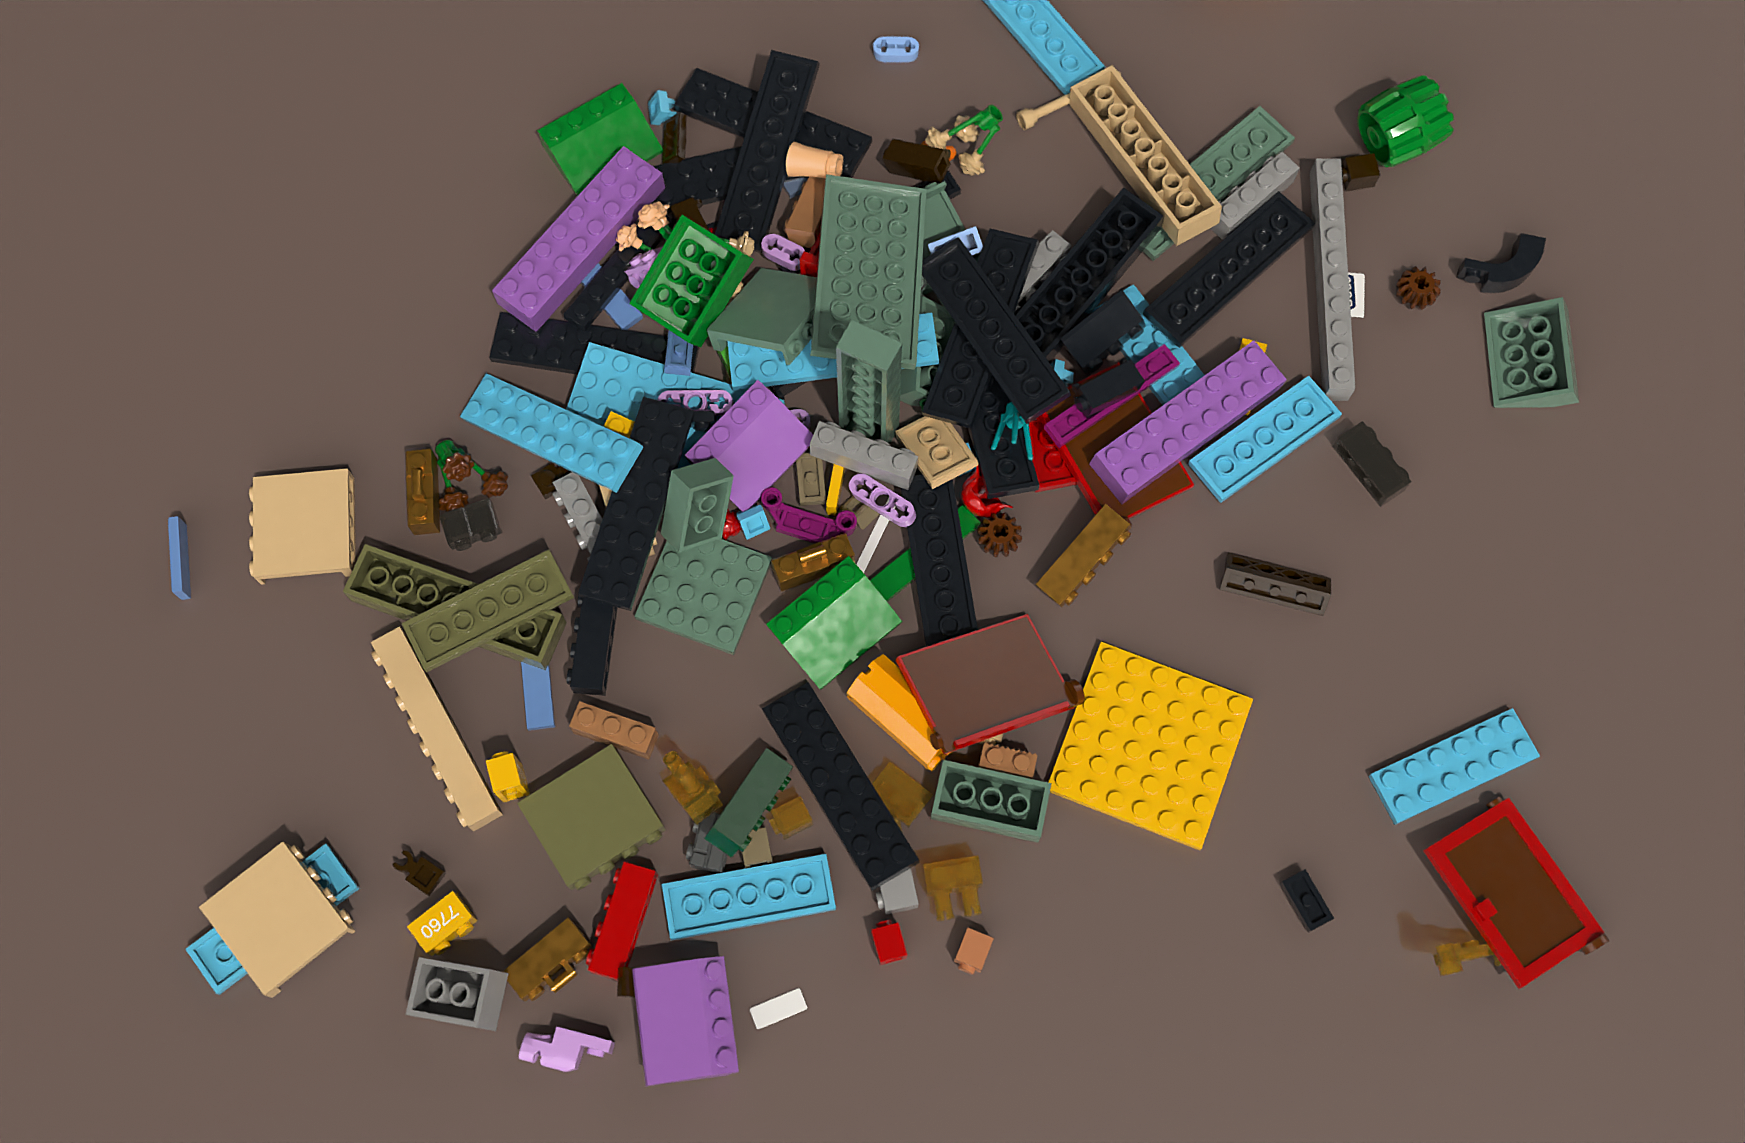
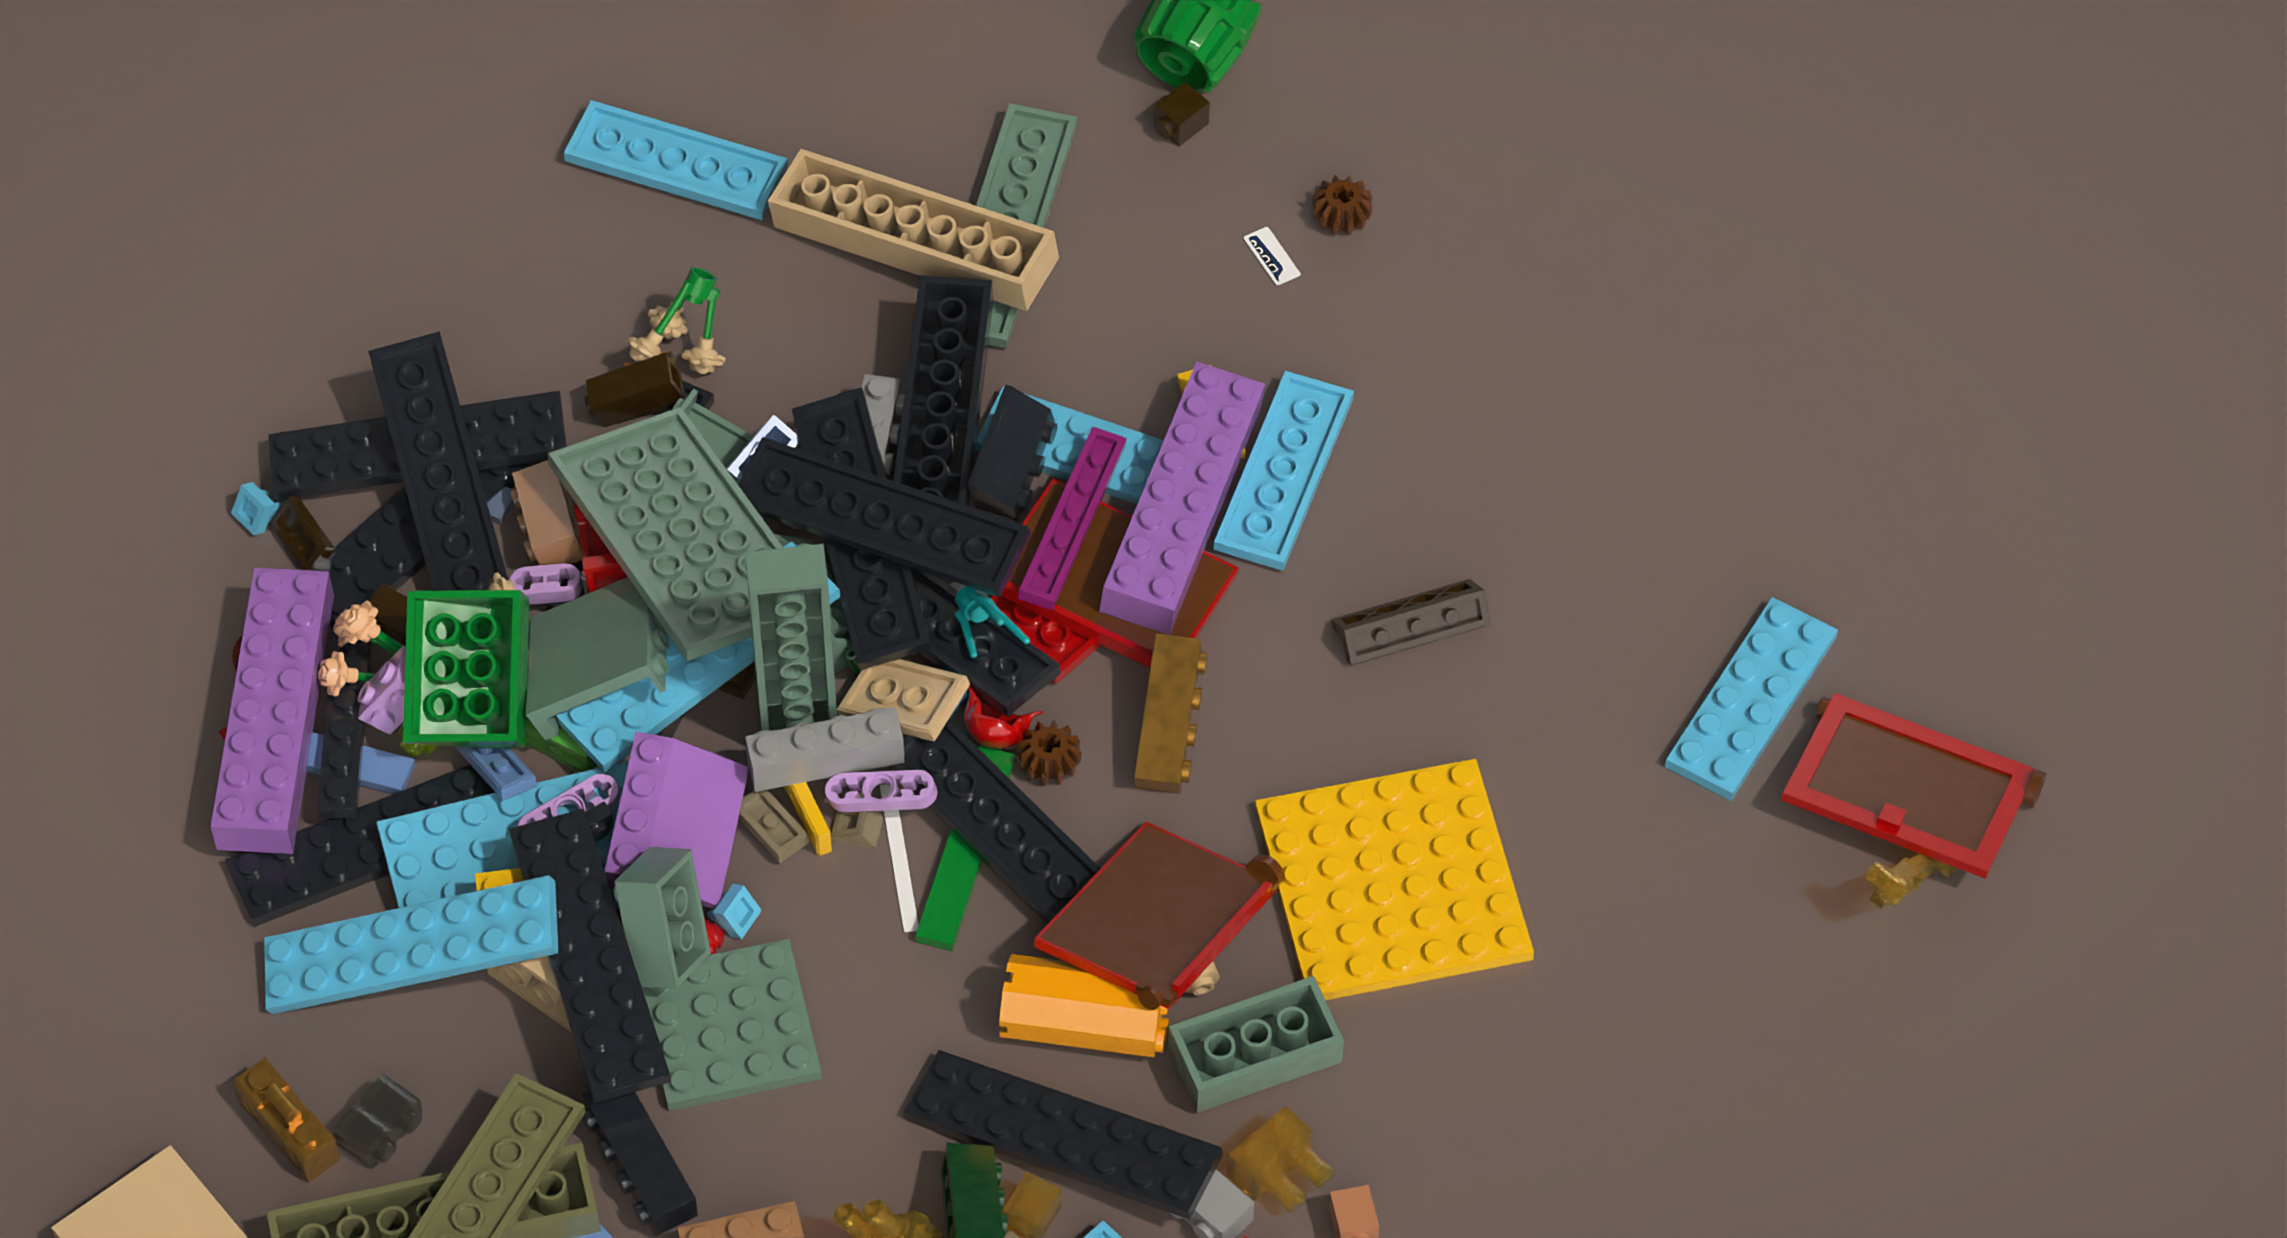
camera: 35 degrees left, 15 degrees down
(457, 466) = (324, 1053): reddish brown plant -> none
(546, 476) = (442, 1013): dark brown plate -> none
(580, 508) = (519, 1028): light grey brick -> none
(594, 133) = (199, 588): green slope -> none
(805, 524) = (802, 878): magenta plate -> none
(811, 562) = (845, 912): pearl gold piece -> none
(812, 162) = (511, 456): light nougat plant -> none
(834, 622) = (922, 963): slope -> none
(895, 49) = (507, 279): light blue beam -> none
(901, 794) = (1144, 1098): clear yellow plate -> none
(1008, 760) = (1241, 984): medium nougat brick -> none
(1028, 117) = (735, 268): tan piece -> none
(1108, 388) = (1066, 506): black brick -> none
(1228, 269) = (1106, 305): black plate -> none
(1258, 188) = (1077, 203): light grey brick -> none
(1306, 900) = (1691, 935): black plate -> none
(1332, 280) = (1235, 249): light grey brick -> none
(1372, 463) = (1427, 426): clear smoke brick -> none
(1505, 276) = (1430, 139): black arch -> none
(1531, 355) = (1523, 207): sand green slope -> none

